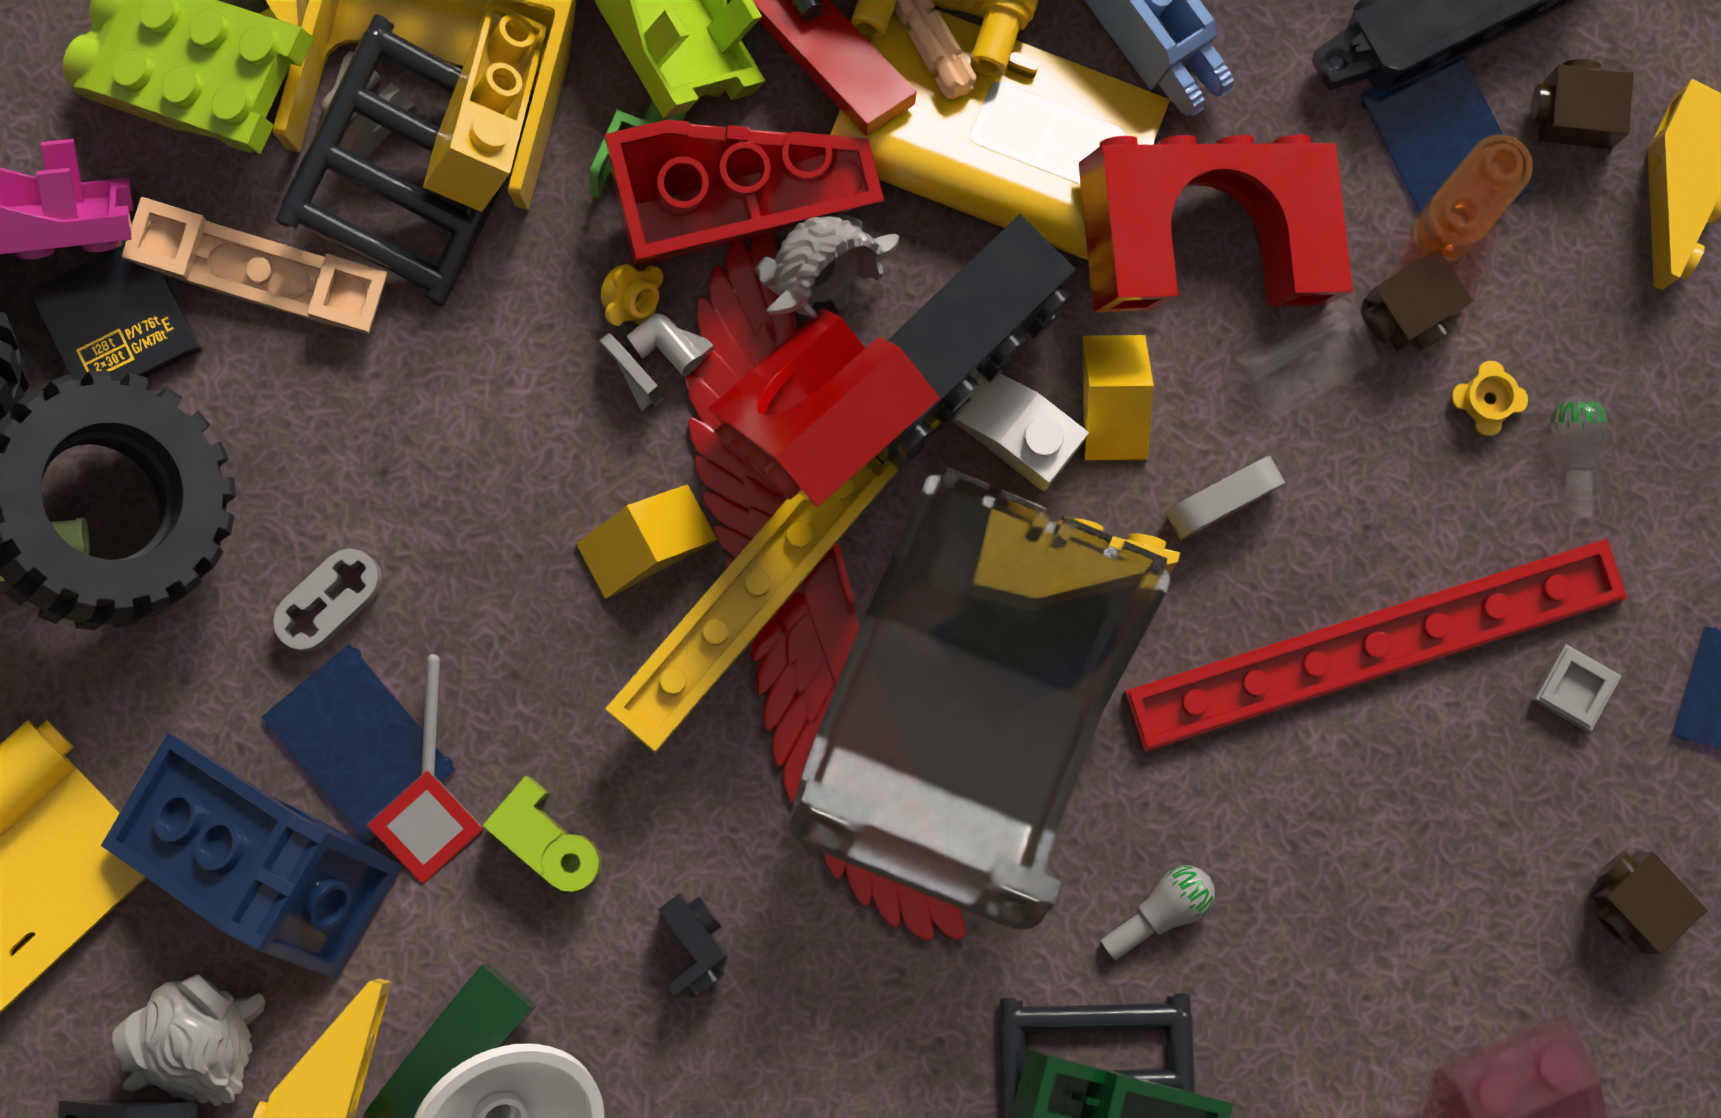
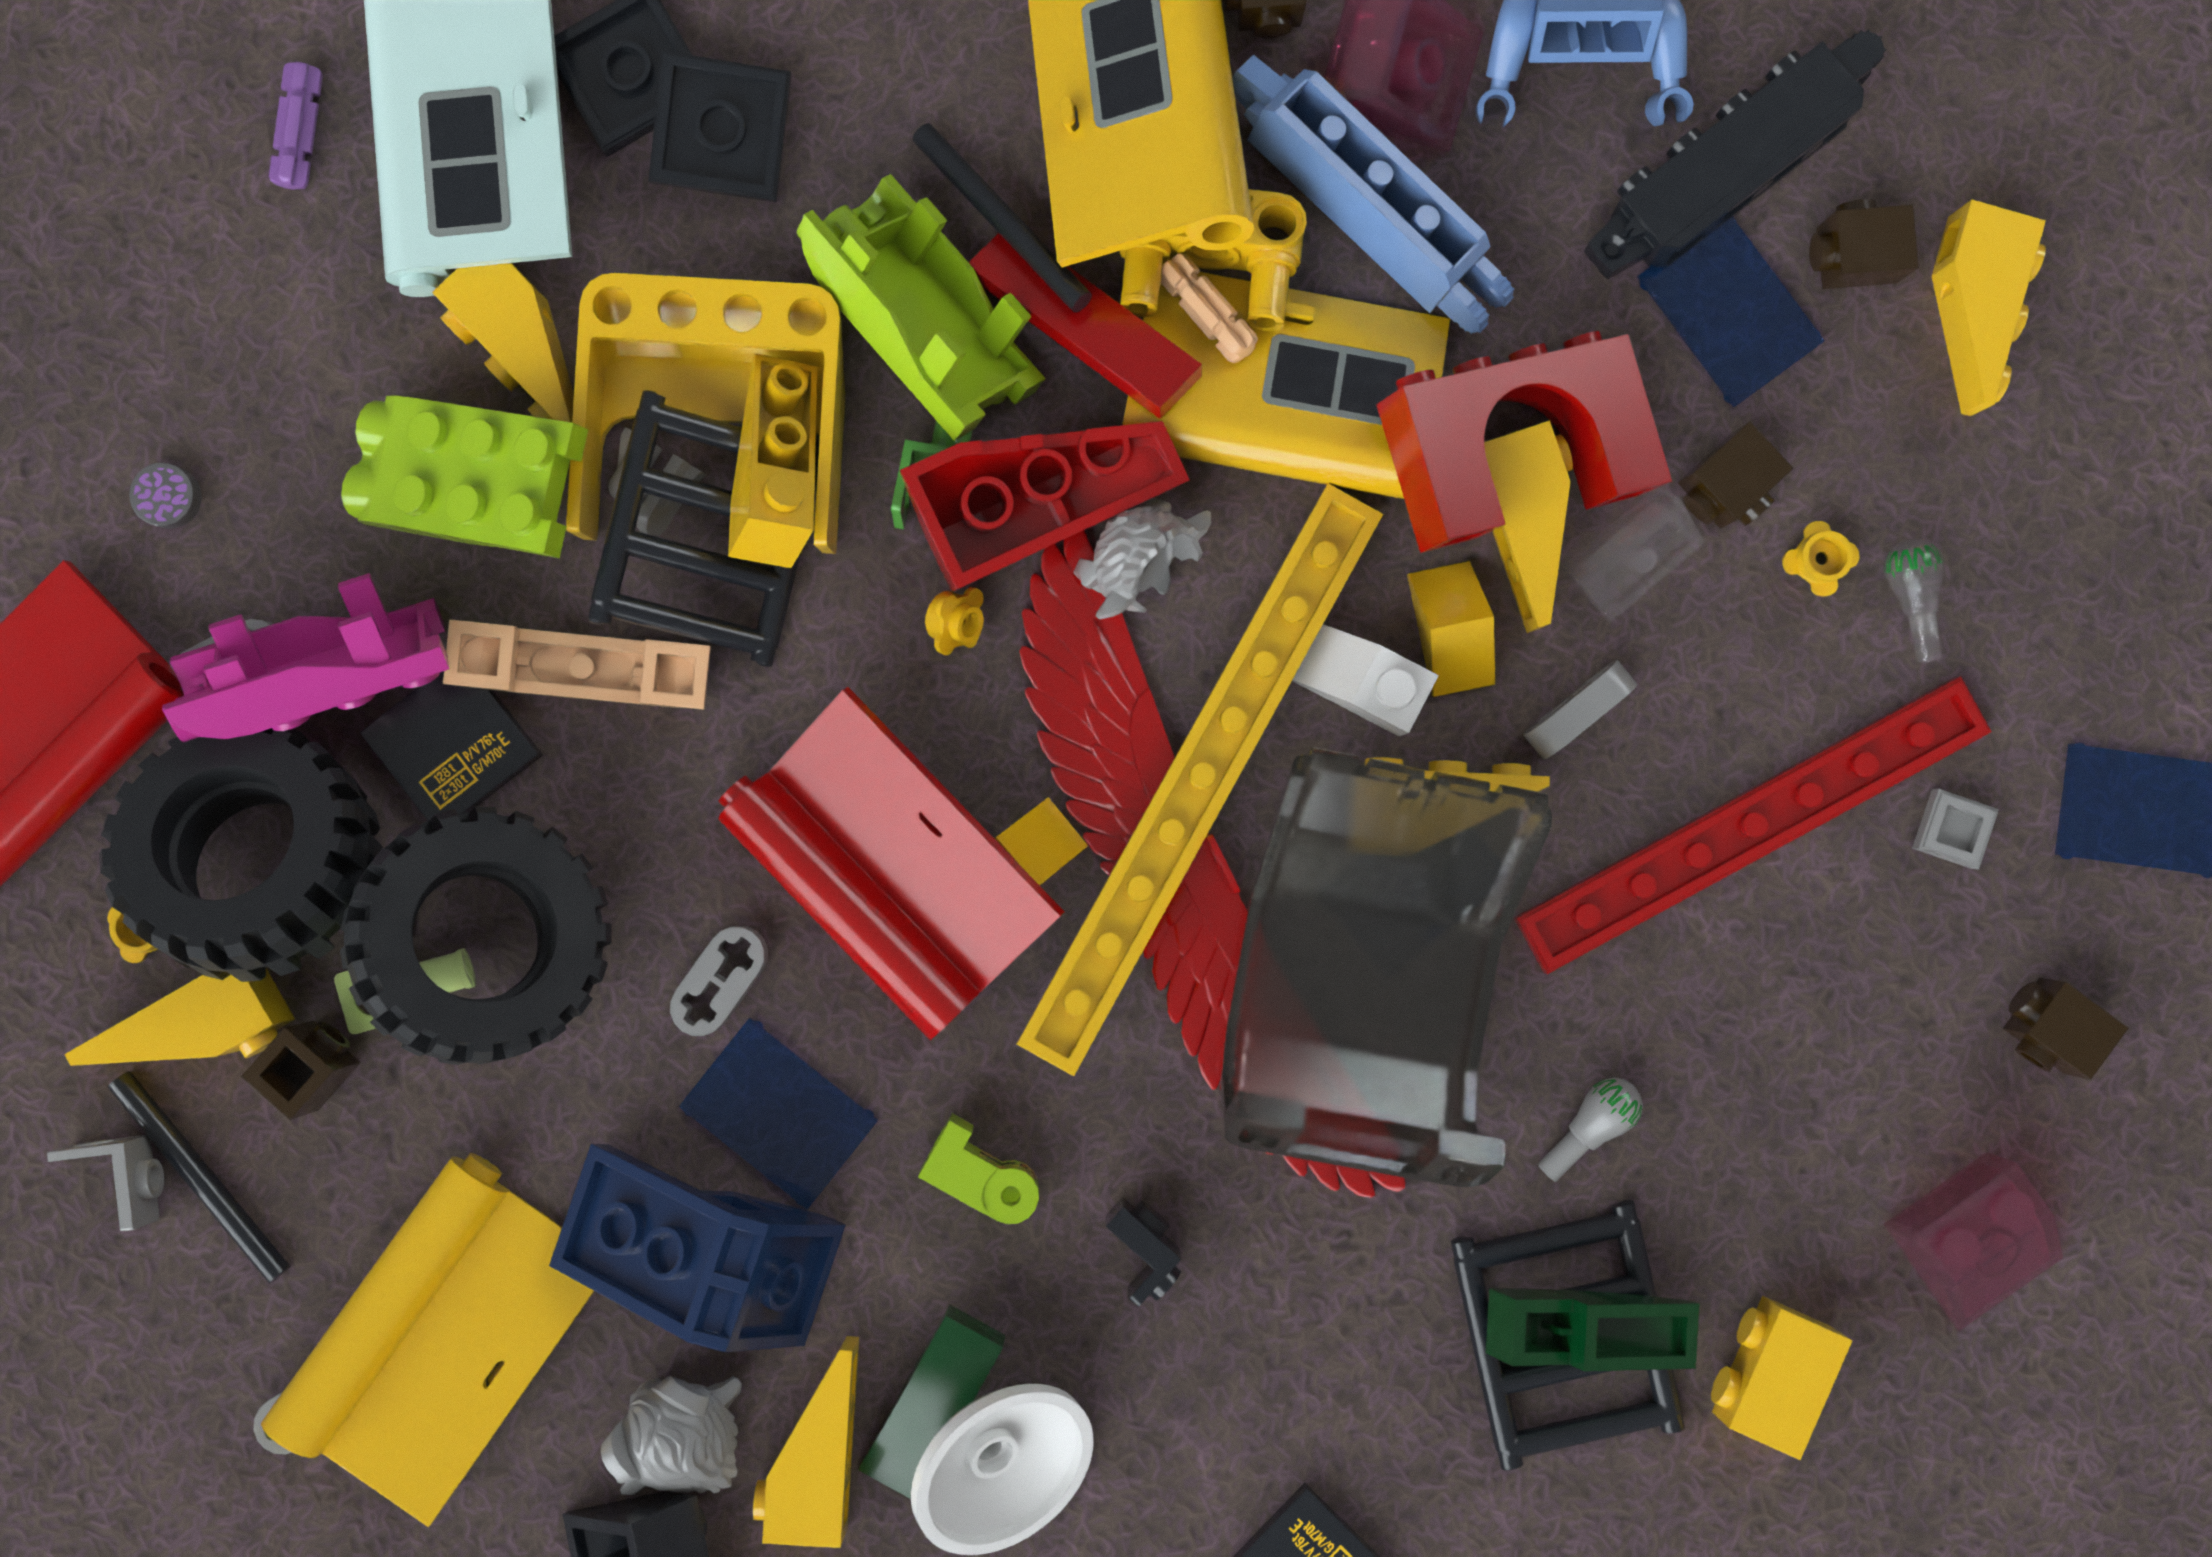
camera: 10 degrees left, 5 degrees up
(426, 821) = (860, 1176): piece -> none
(518, 516) = (889, 863): none -> door
(657, 331) = (1013, 663): light grey piece -> none
(820, 408) = (1175, 712): red arch -> none
(978, 327) = (1297, 607): black piece -> none
(1213, 275) = (1533, 494): none -> yellow slope
(1473, 197) = (1774, 362): clear orange brick -> none

